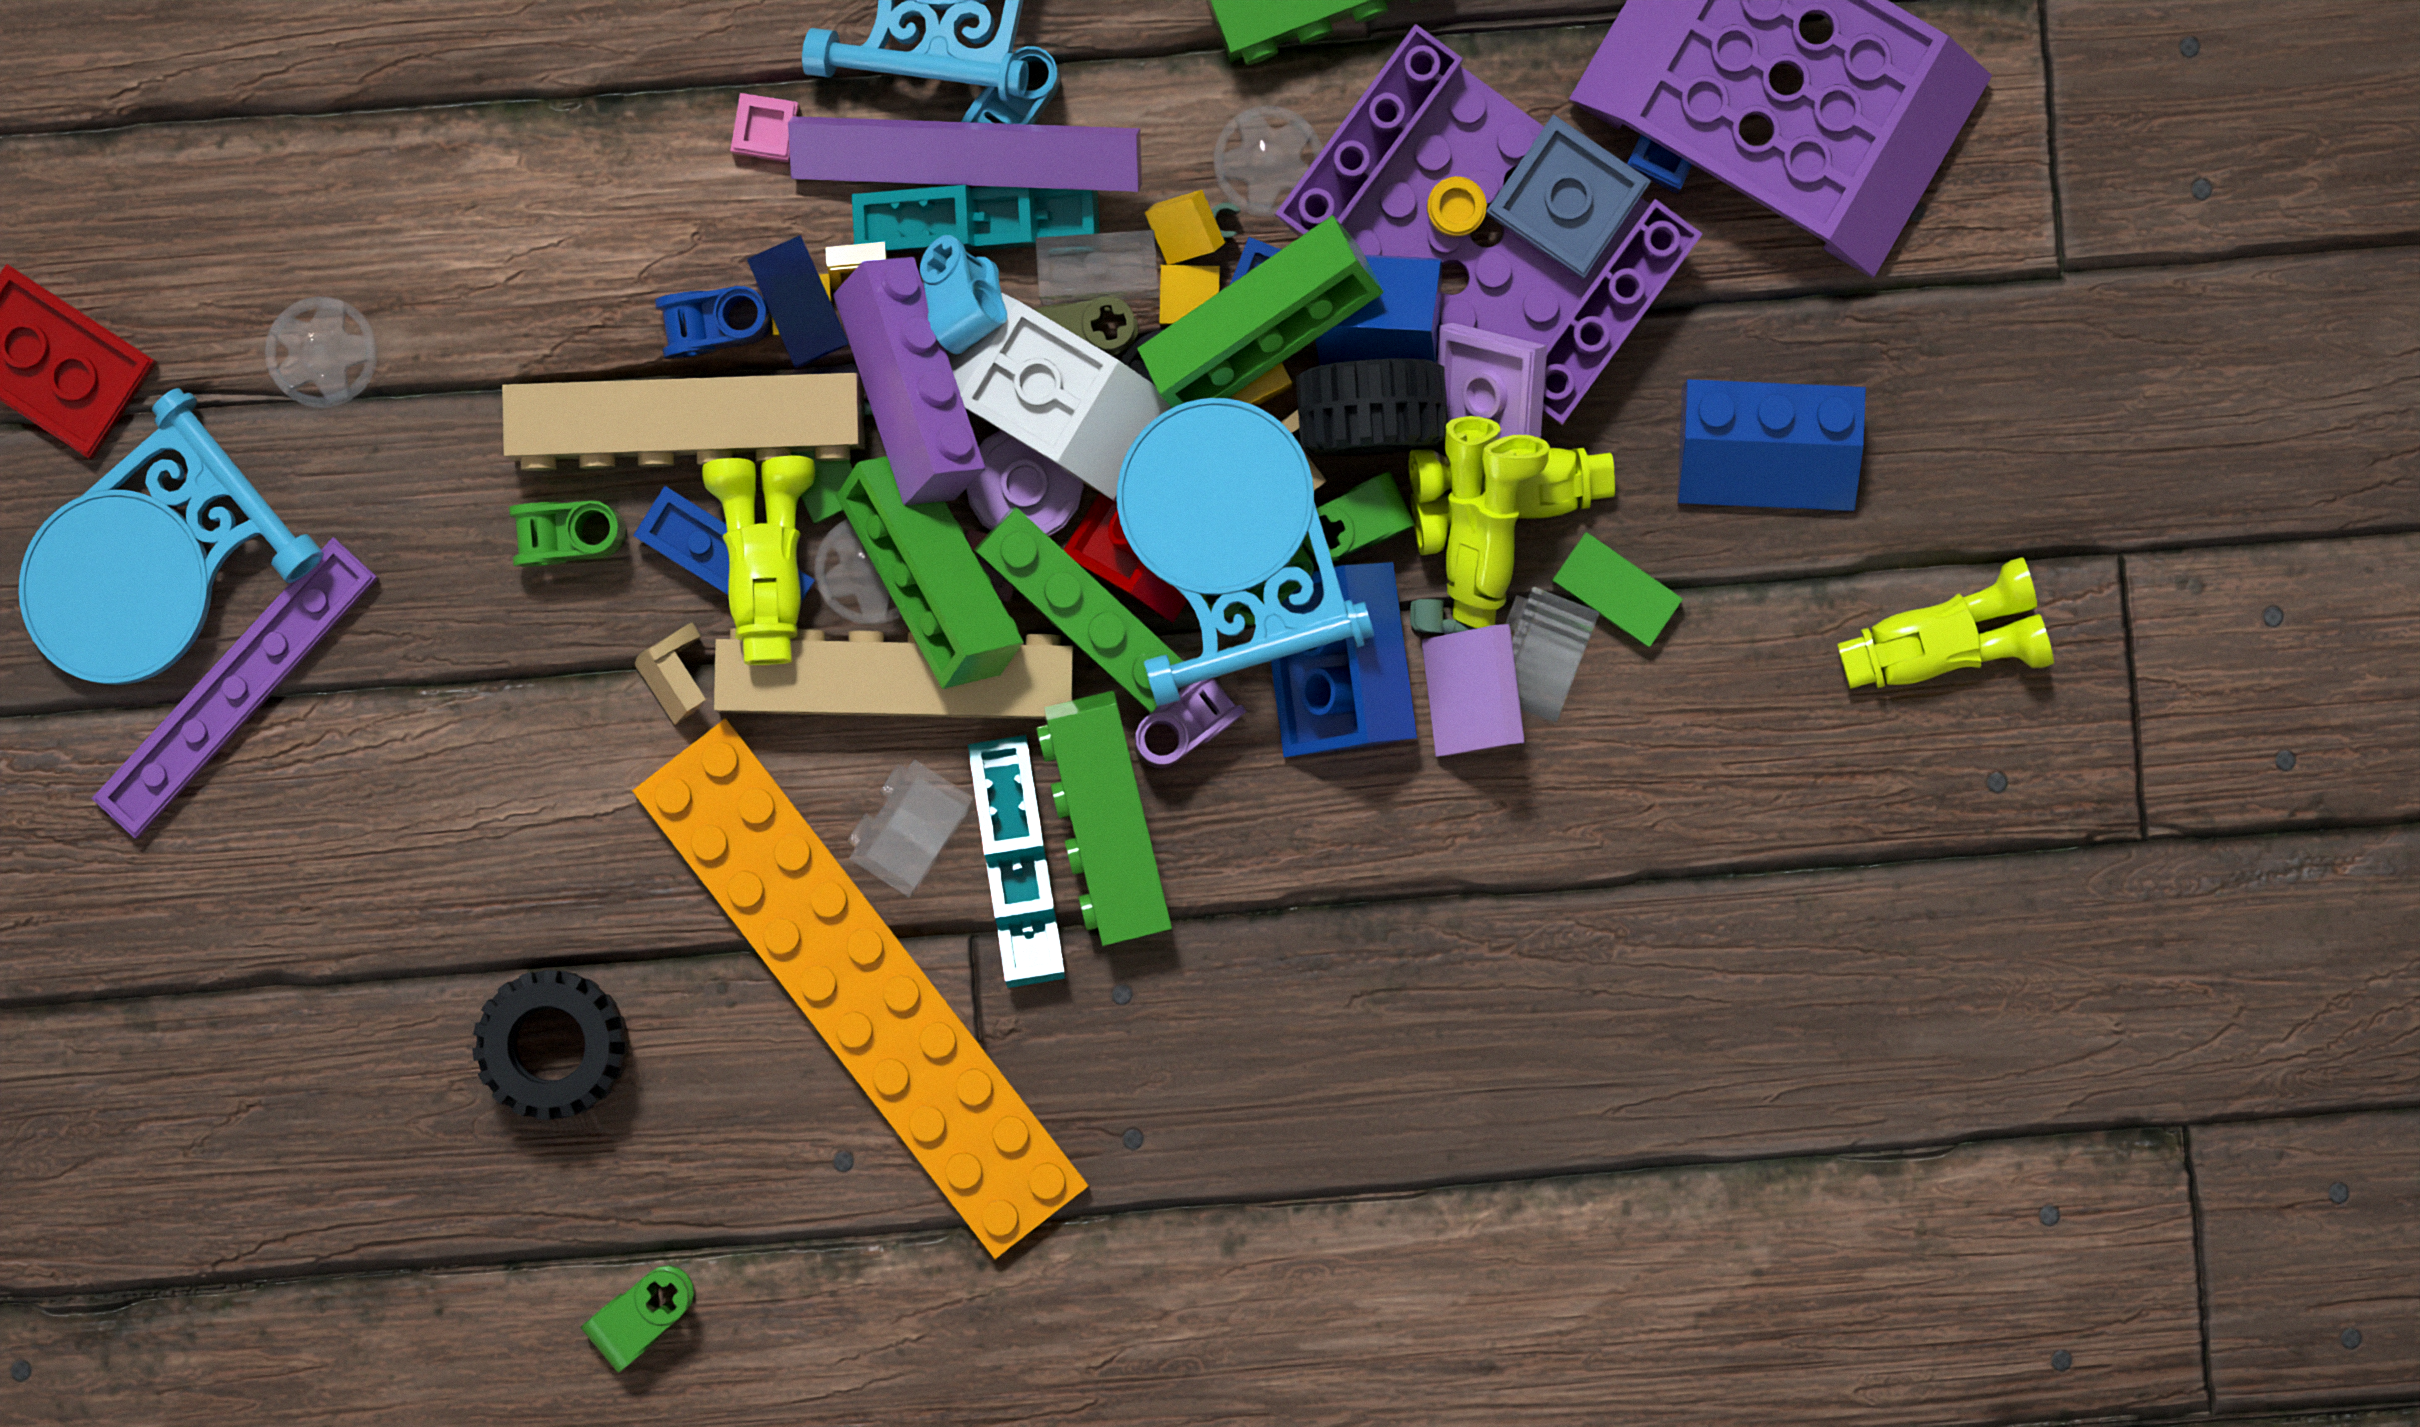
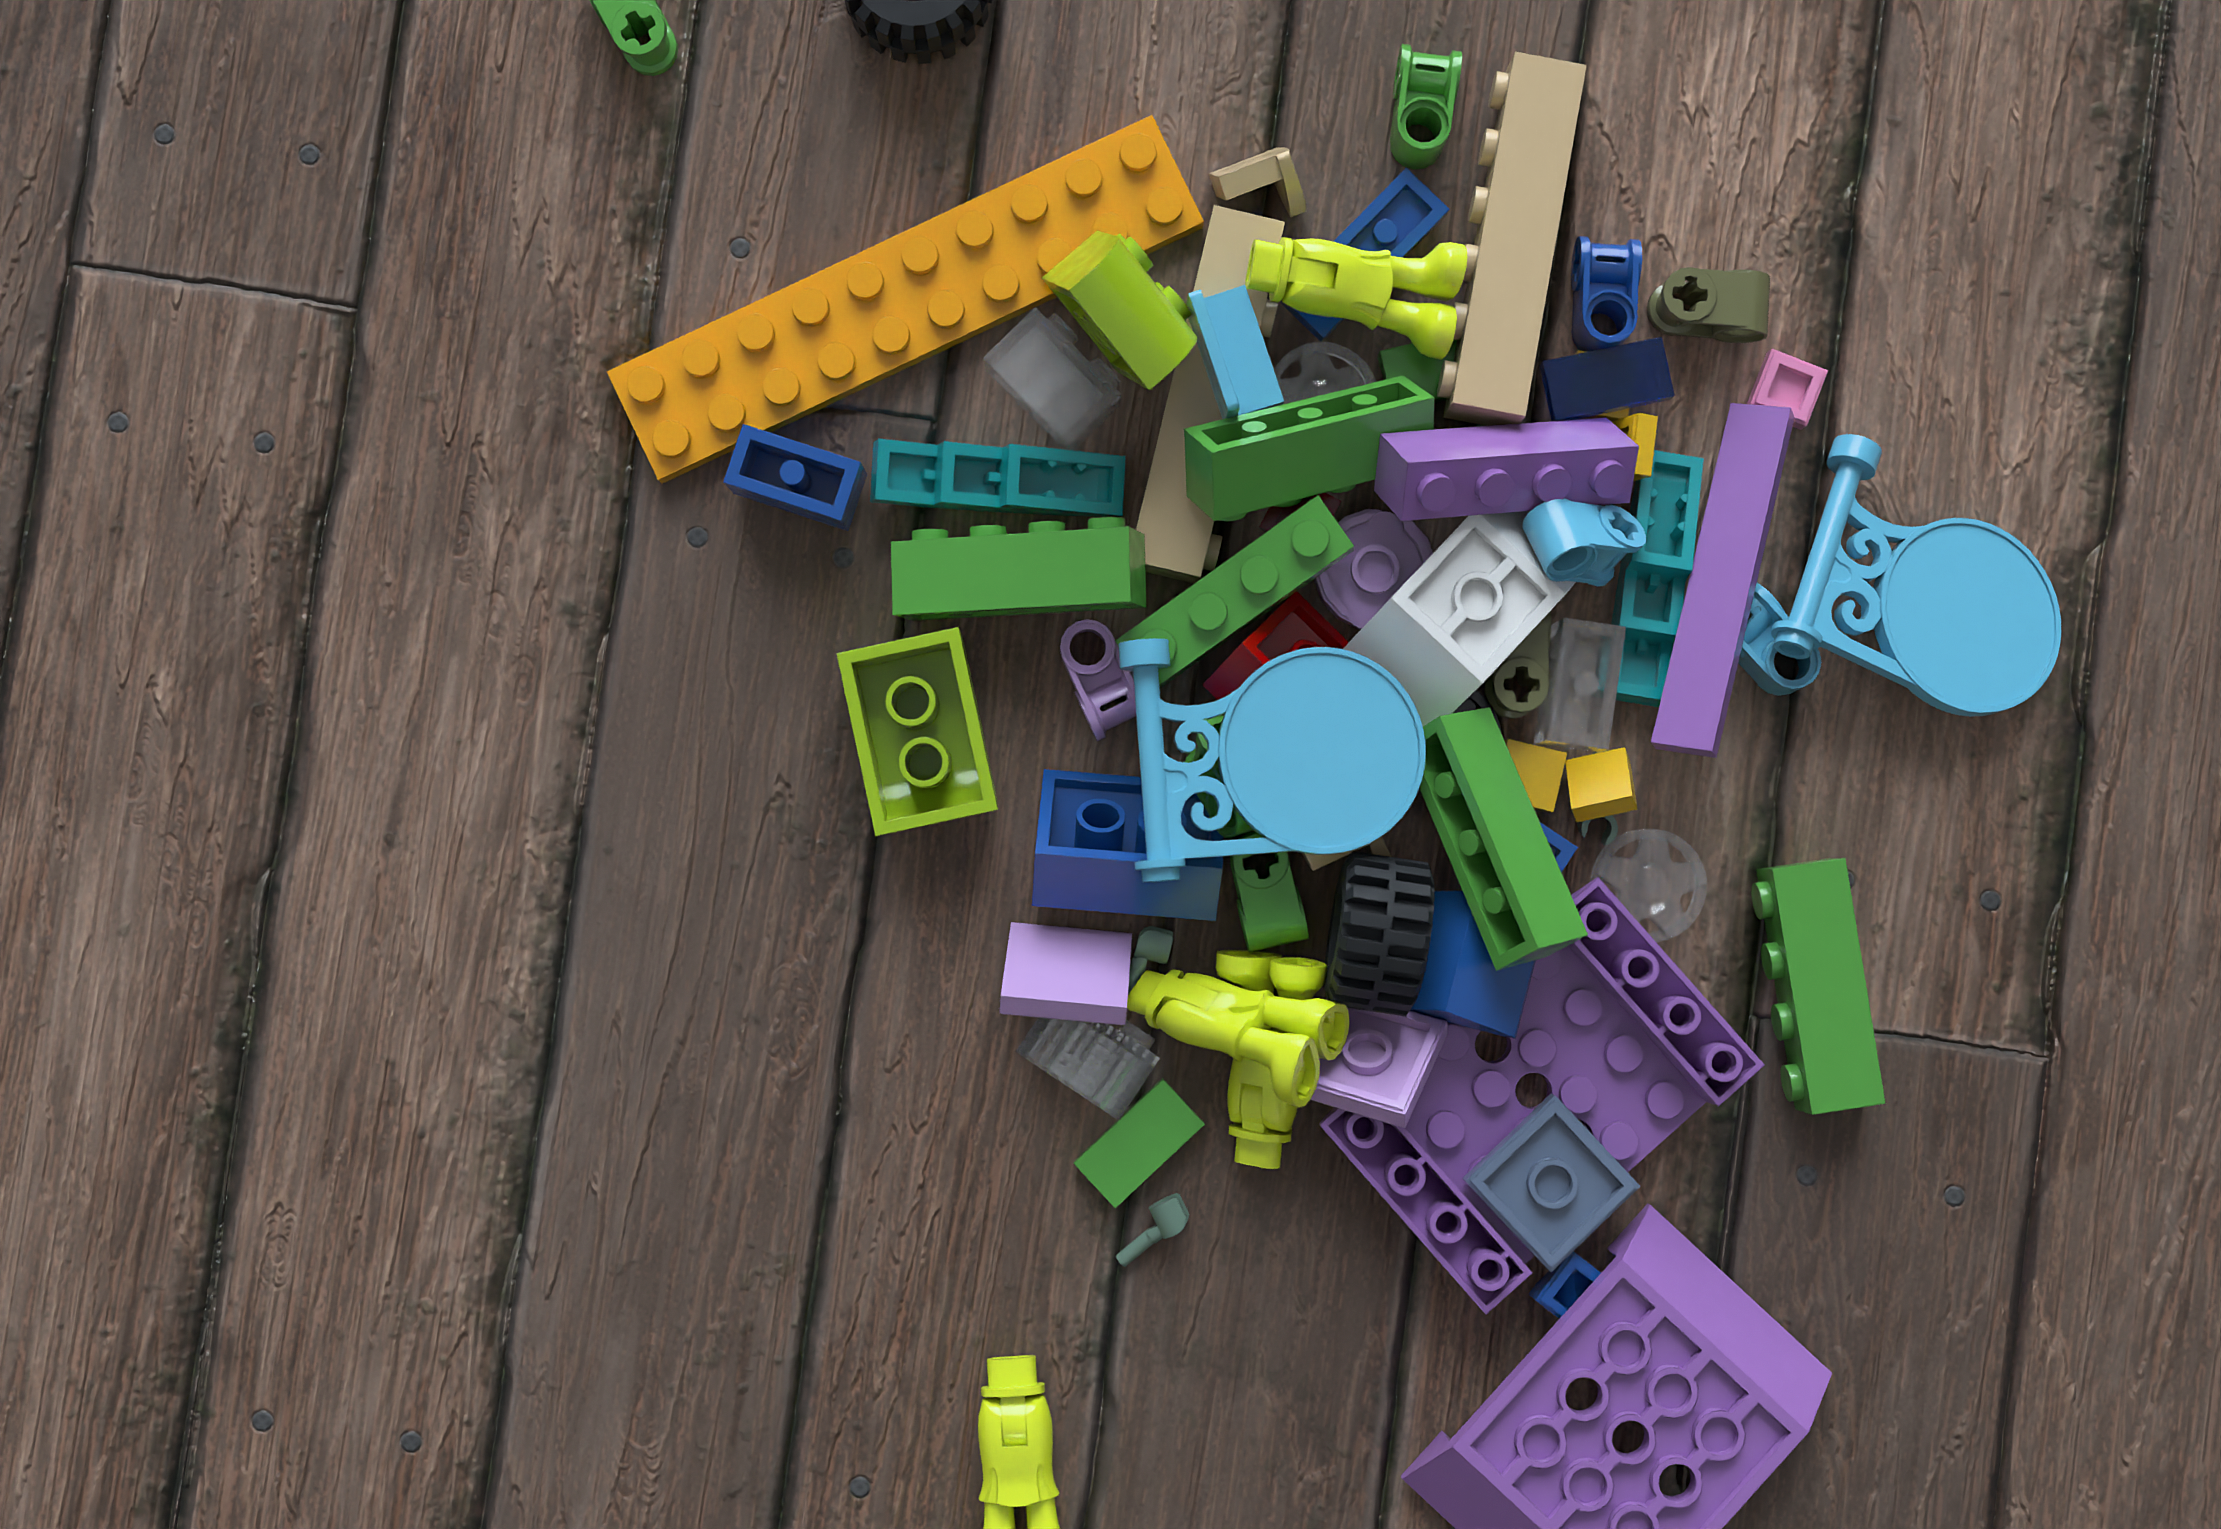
camera: 95 degrees right, 0 degrees up
(700, 206) = (1722, 304): none -> olive piece
(841, 767) = (1122, 308): none -> lime brick
(855, 659) = (1233, 352): none -> medium azure panel
(1060, 1050) = (795, 477): none -> blue brick
(1265, 387) = (1421, 830): yellow tile -> none
(1278, 879) = (918, 731): none -> lime brick
(1456, 207) = (1565, 1065): yellow tile -> none
(1681, 544) = (1170, 1219): none -> sand green hand
(1770, 445) = (1253, 1334): blue slope -> none

